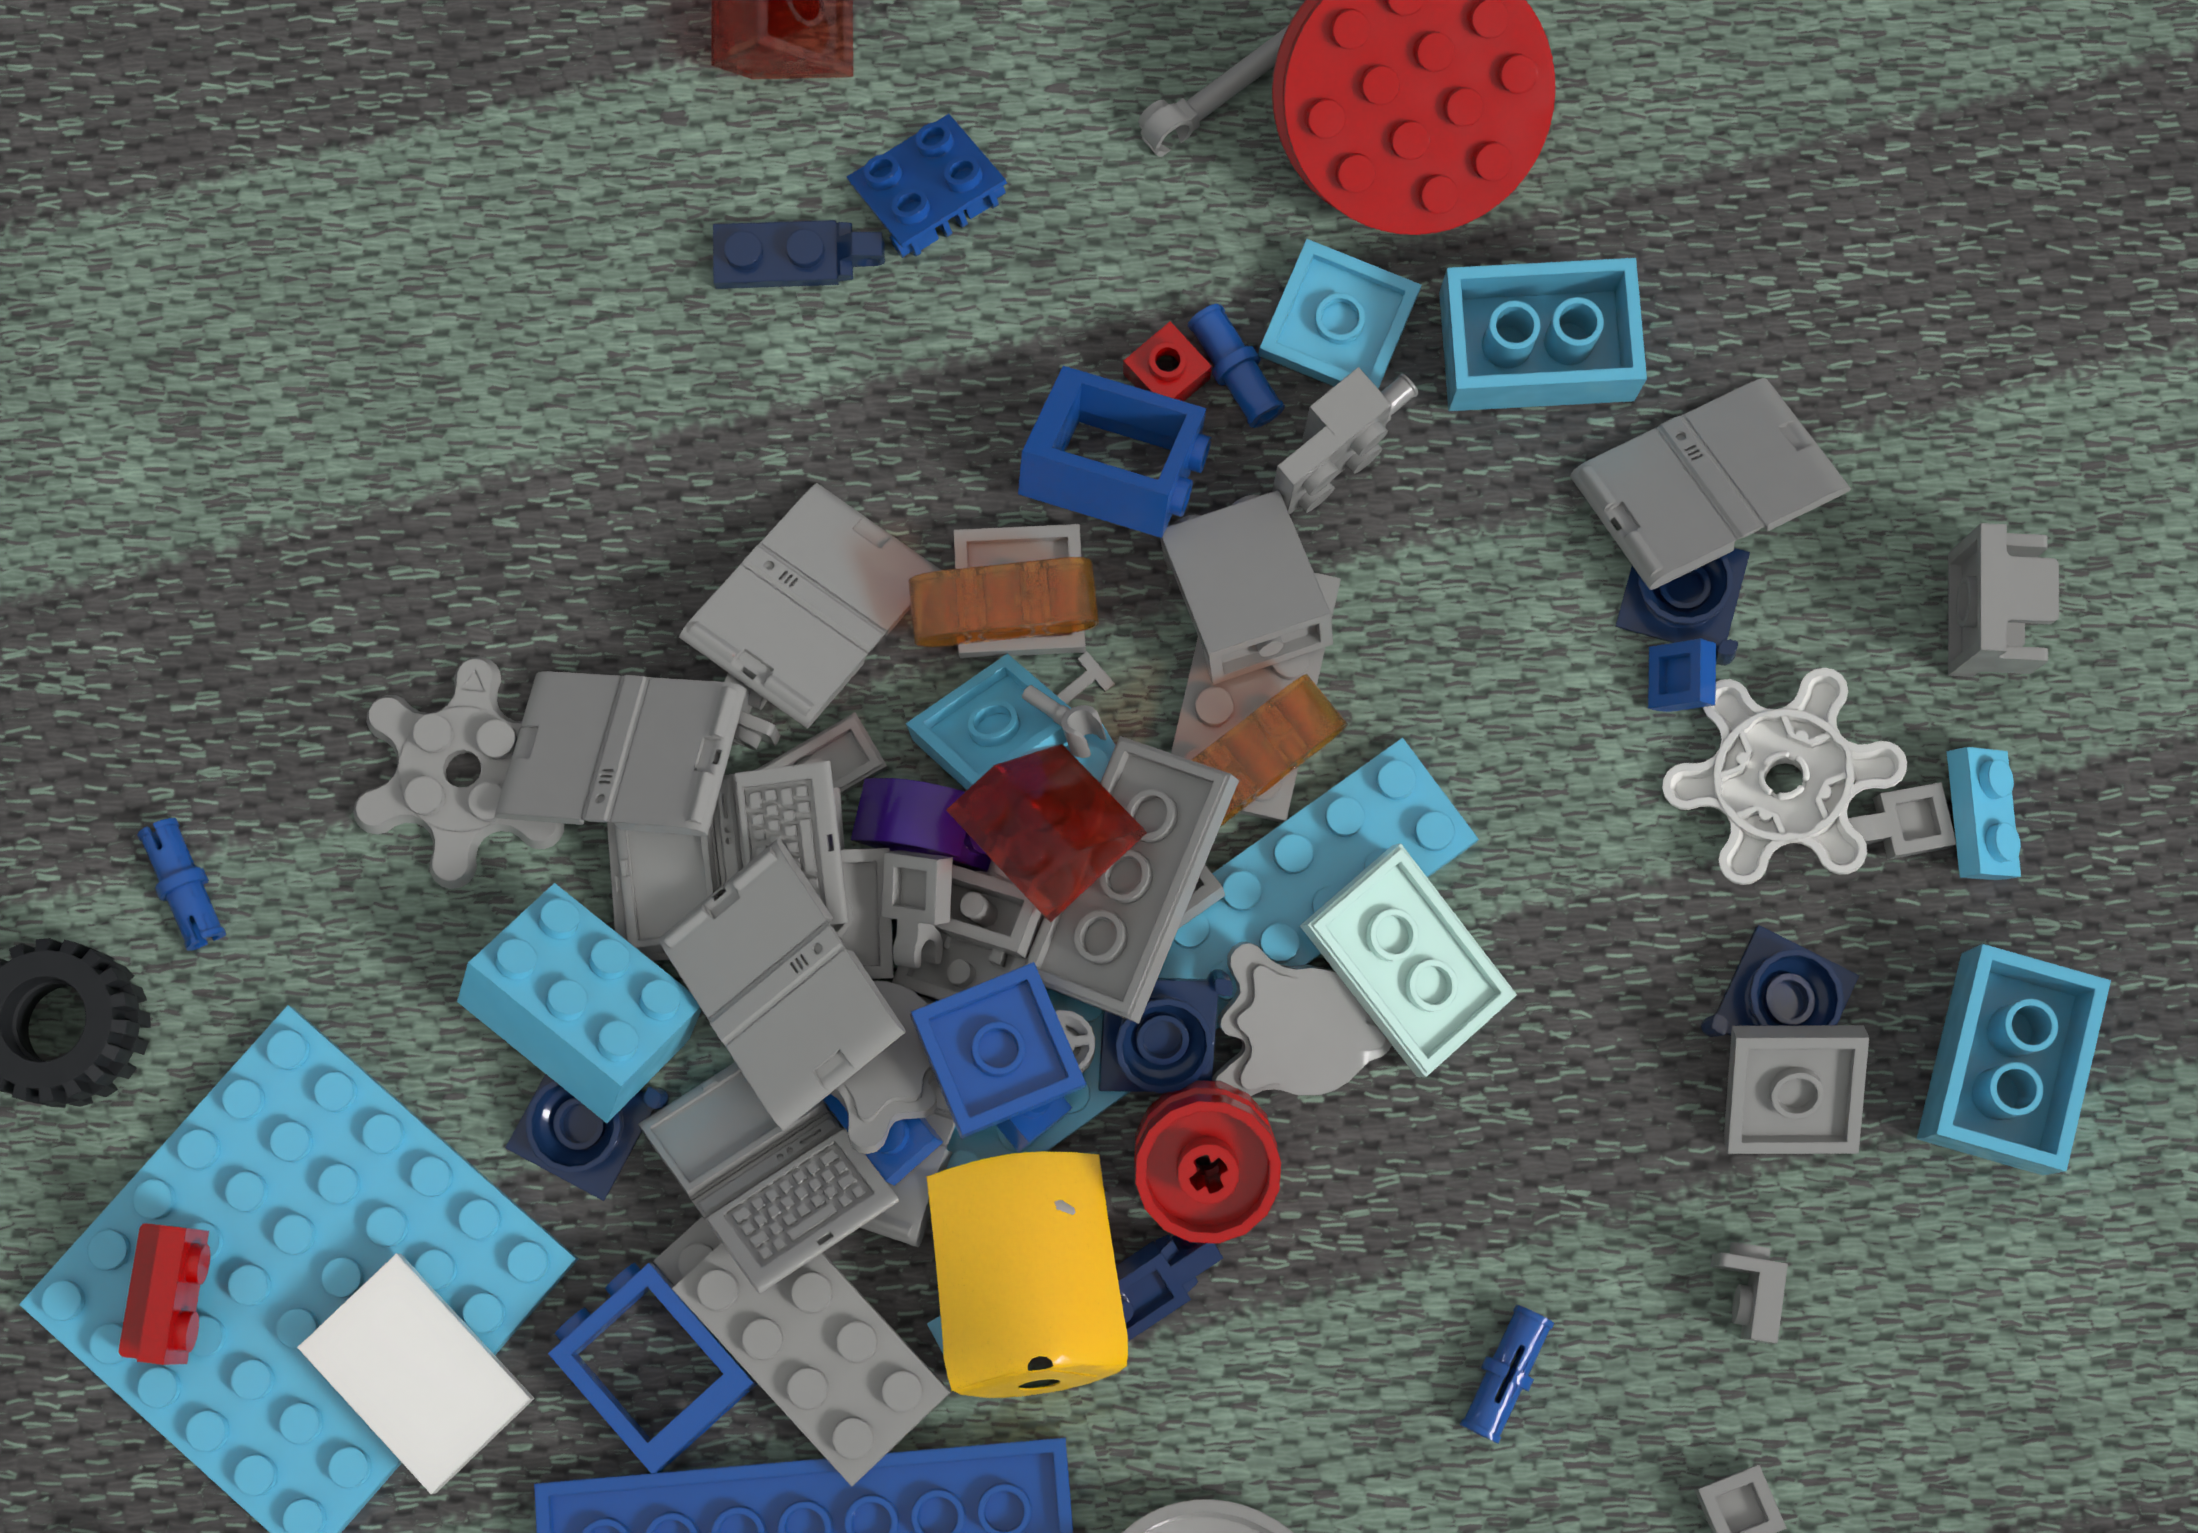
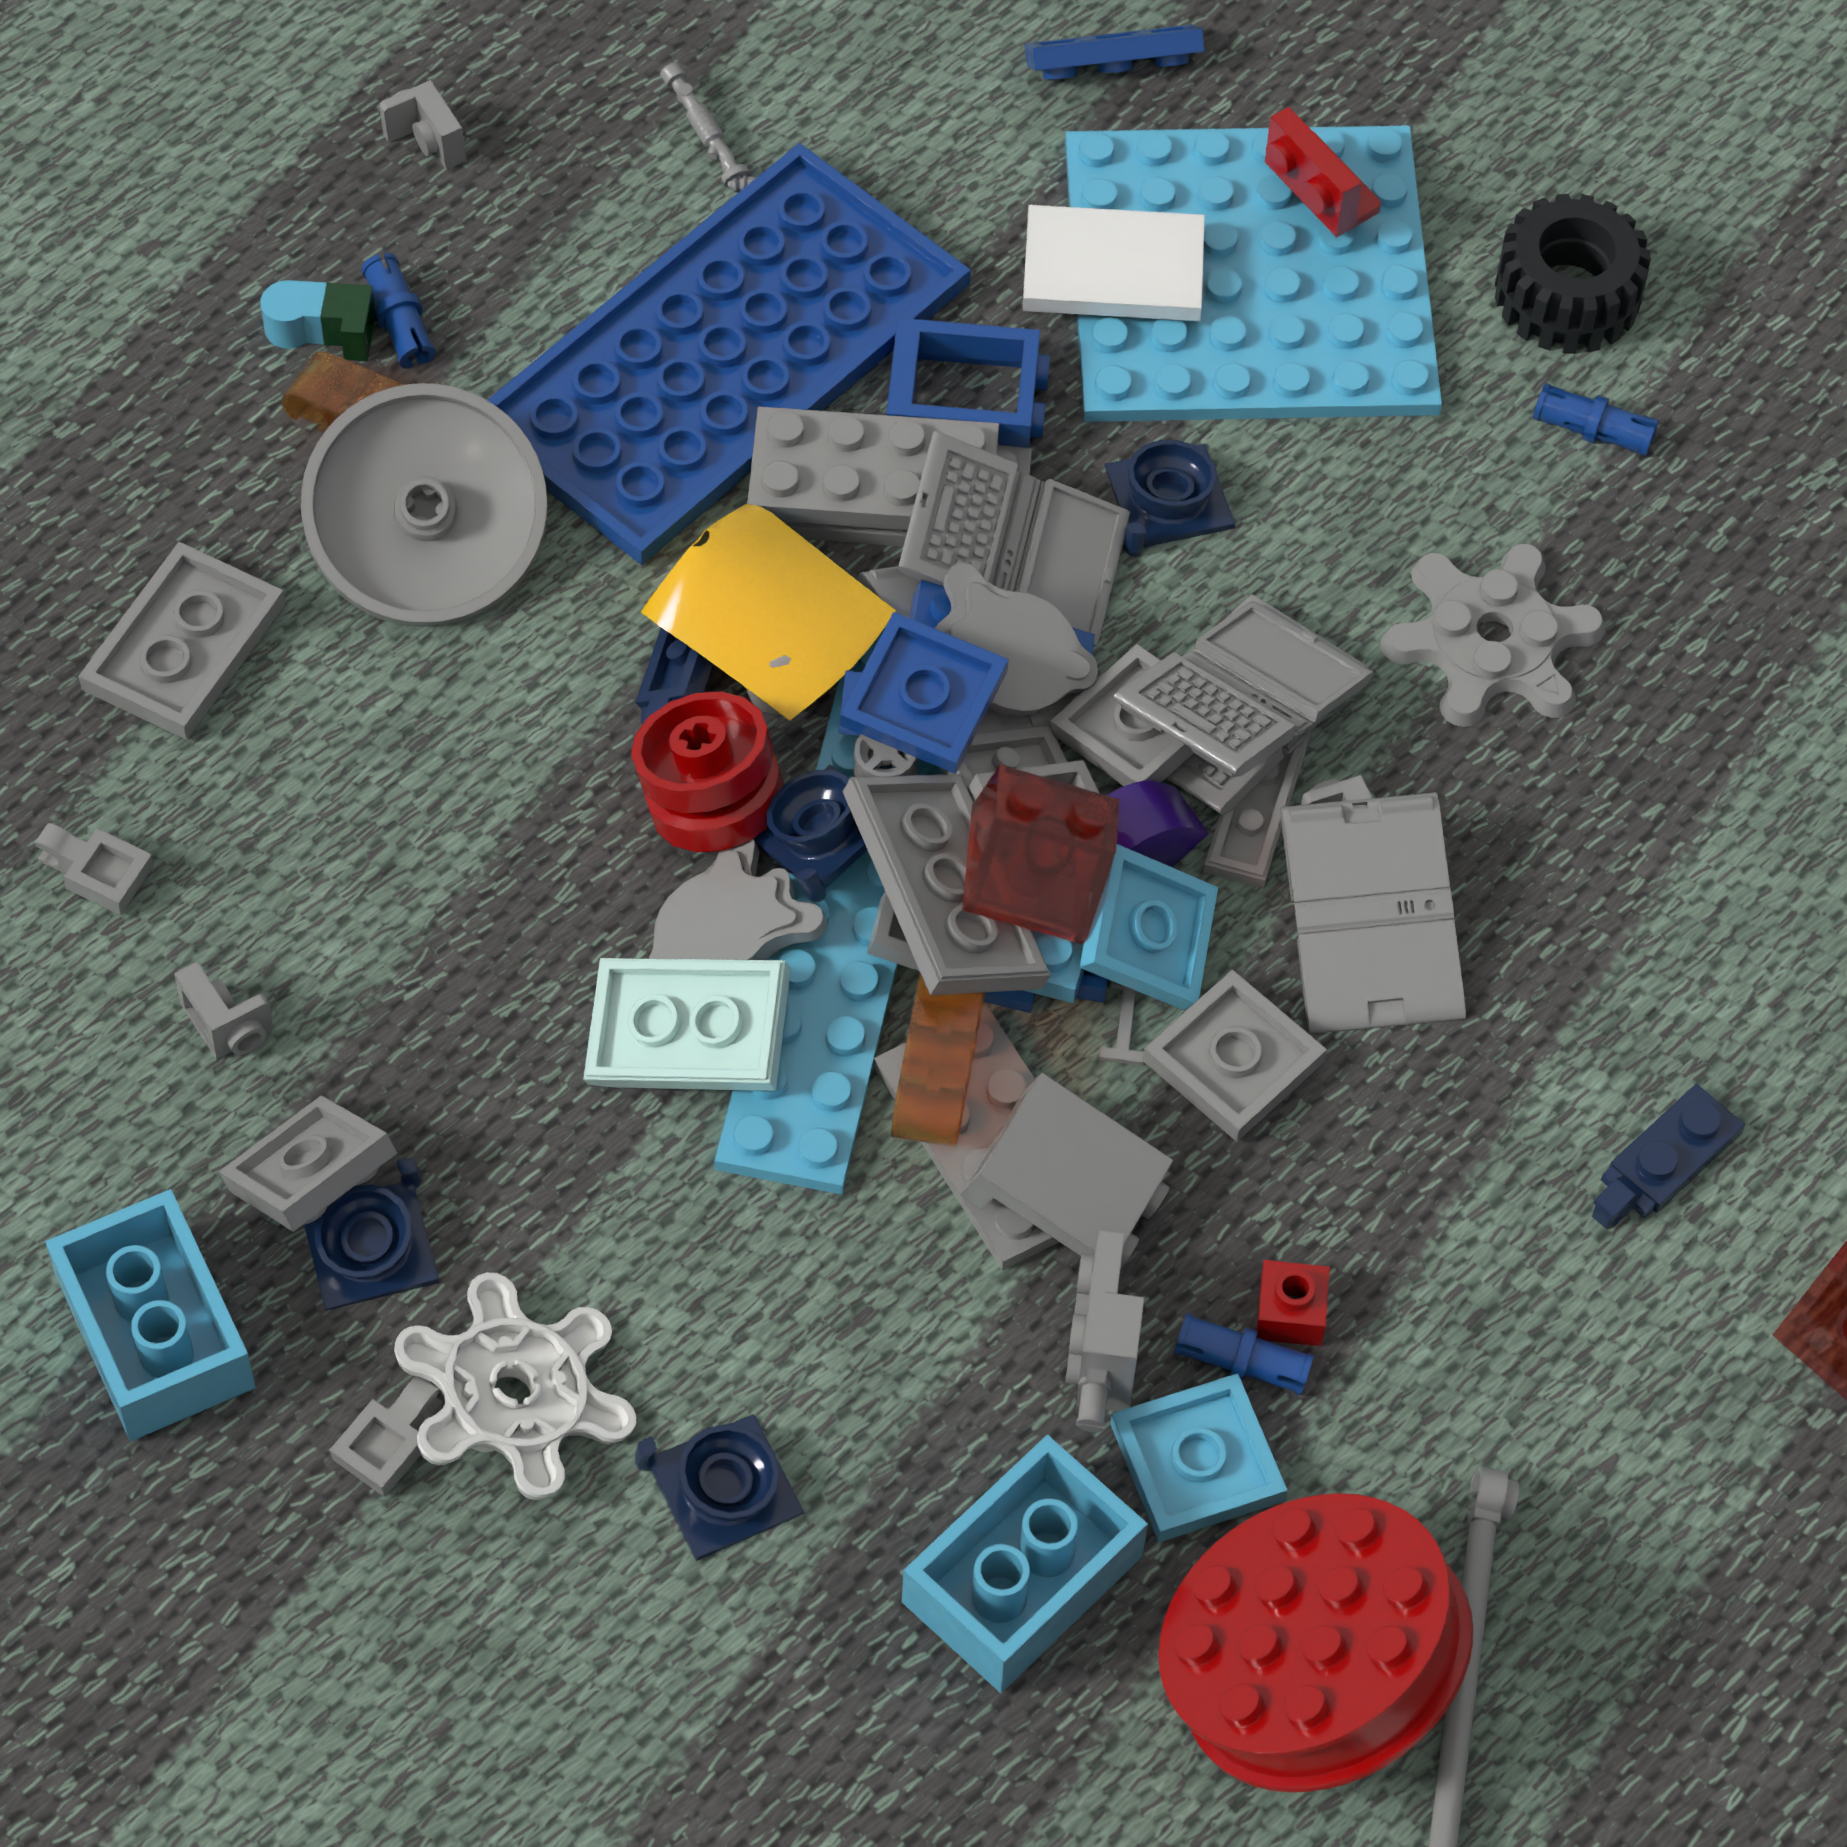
camera: 135 degrees right, 20 degrees down
(579, 1002) = (1246, 532): medium azure brick -> none
(622, 752) = (1391, 697): light grey piece -> none
(781, 985) = (1089, 611): light grey piece -> none
(919, 898) = (1080, 760): light grey plate -> none
(927, 184) = (1622, 1290): blue hinge -> none
(1003, 602) = (1232, 1011): clear orange beam -> none
(1074, 721) = (1093, 948): light grey hand -> none
(1102, 489) = (1322, 1162): blue window -> none
(1525, 1331) = (366, 859): blue pin -> none
(1682, 675) = (663, 1403): blue plate -> none
(1707, 481) = (779, 1574): light grey piece -> none
(1984, 813) = (326, 1497): medium azure plate -> none
(1992, 593) = (463, 1654): light grey panel -> none

